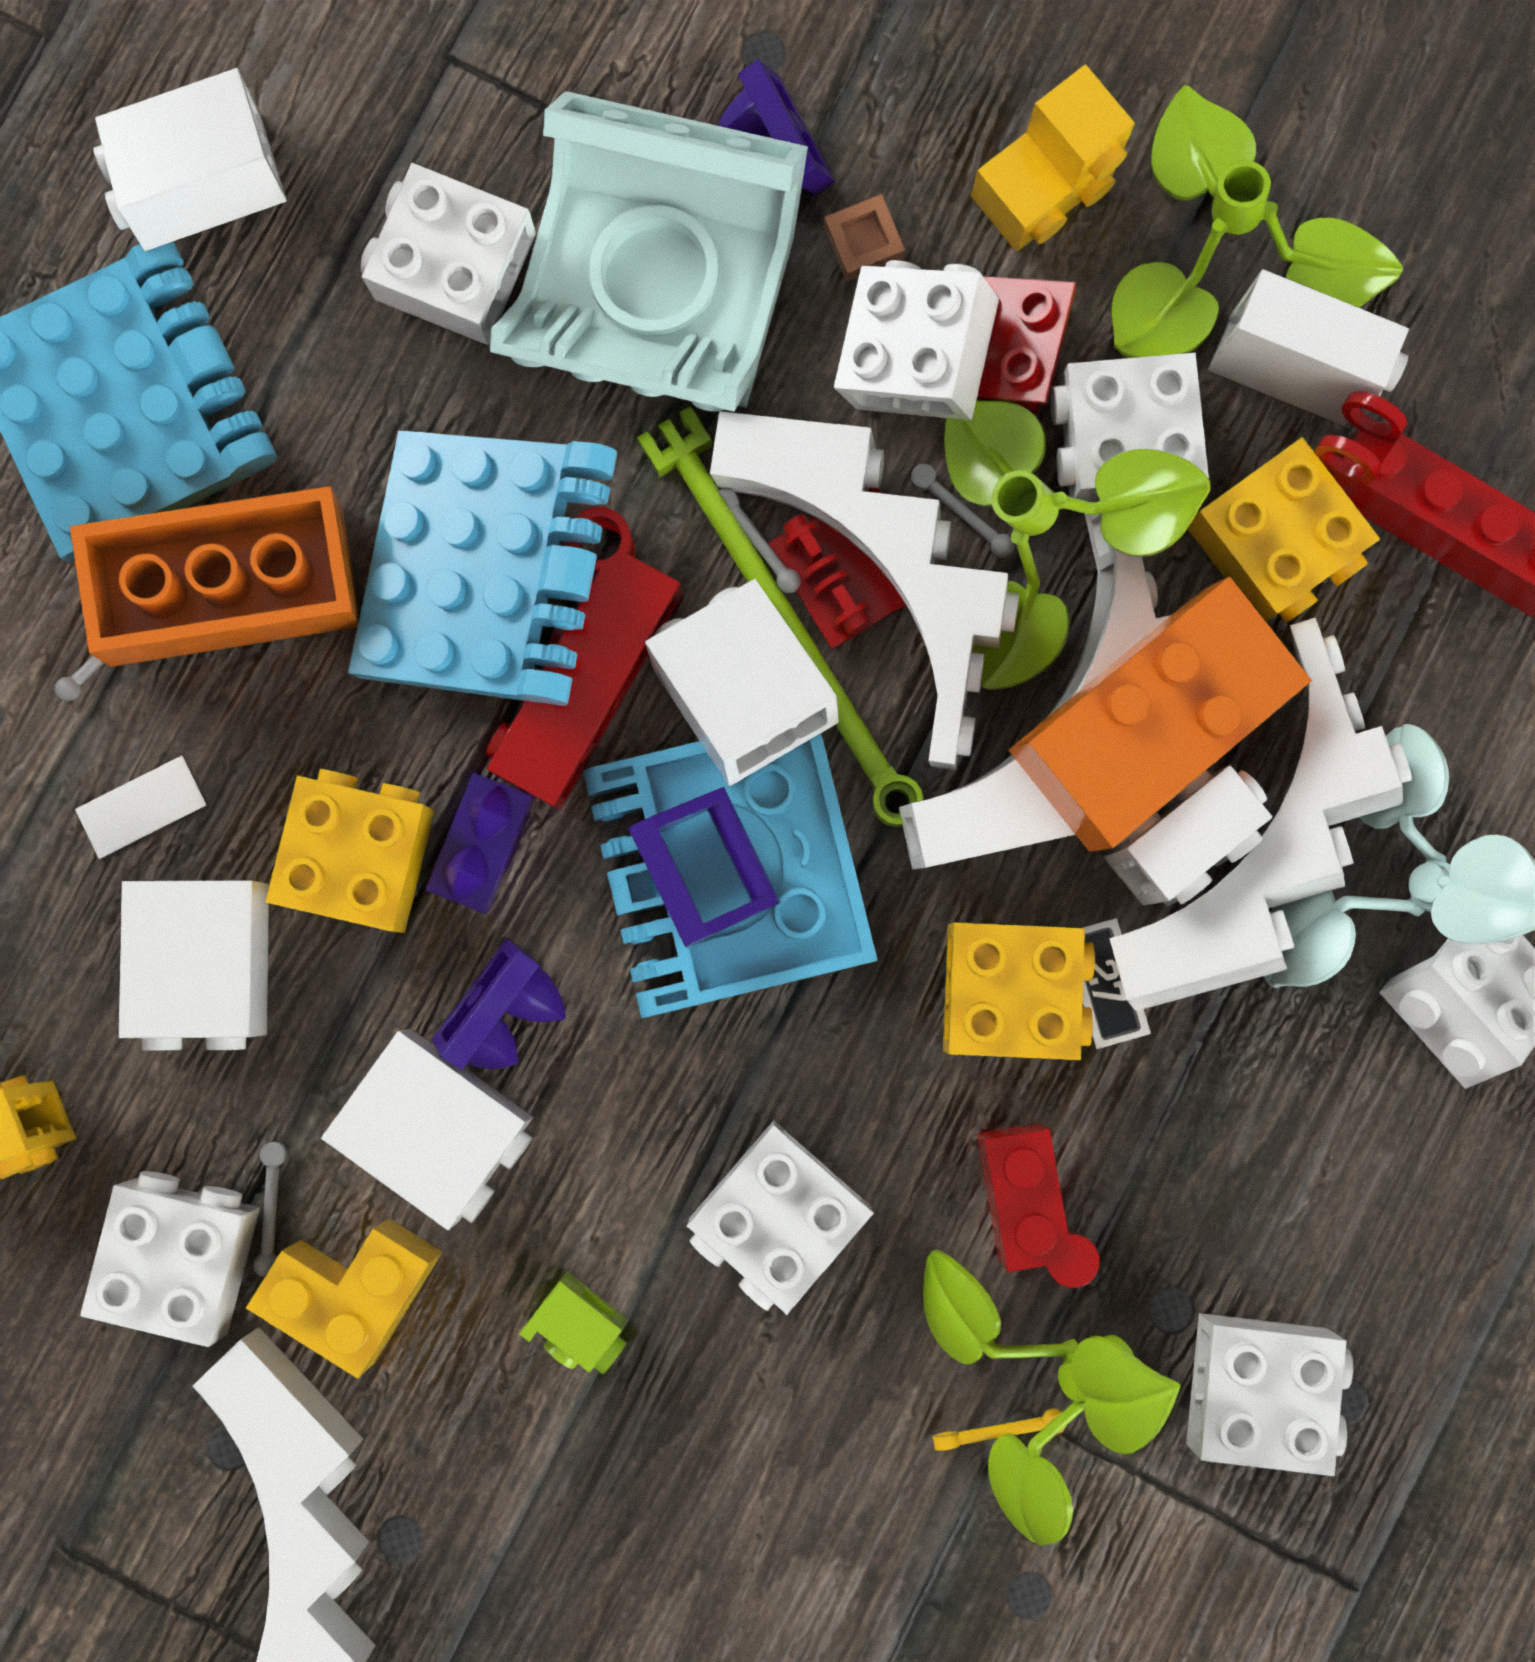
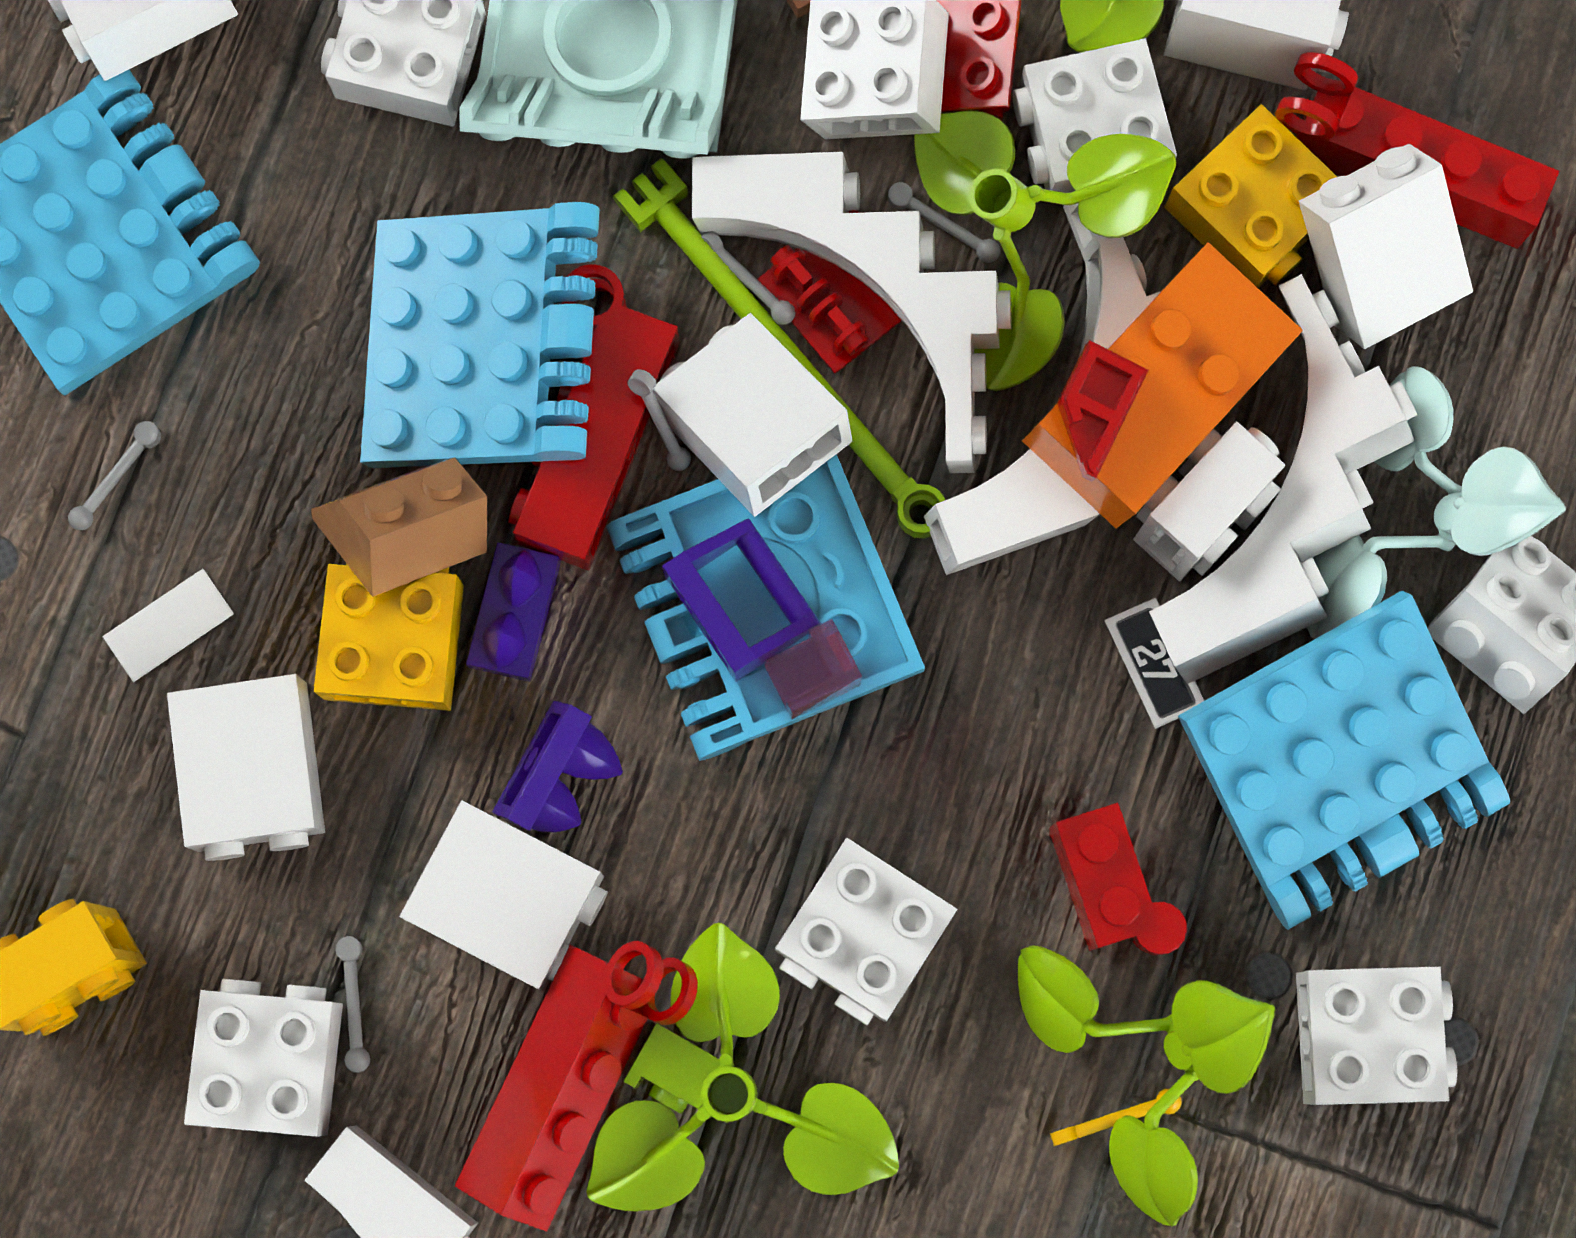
camera: 10 degrees left, 5 degrees down
(215, 576) = (219, 385): orange brick -> none
(342, 1309) = (446, 1089): yellow brick -> none
(380, 748) = (408, 525): none -> medium nougat slope
(462, 1323) = (566, 1079): none -> red hinge
(537, 1407) = (648, 1160): none -> lime plant
(636, 639) = (642, 384): none -> light grey hinge
(764, 950) = (813, 671): none -> clear pink panel
(1017, 991) = (1066, 676): yellow brick -> none
(1092, 731) = (1098, 403): none -> red tile
(1277, 1103) = (1339, 747): none -> medium azure hinge
(1408, 599) = (1387, 244): none -> white brick

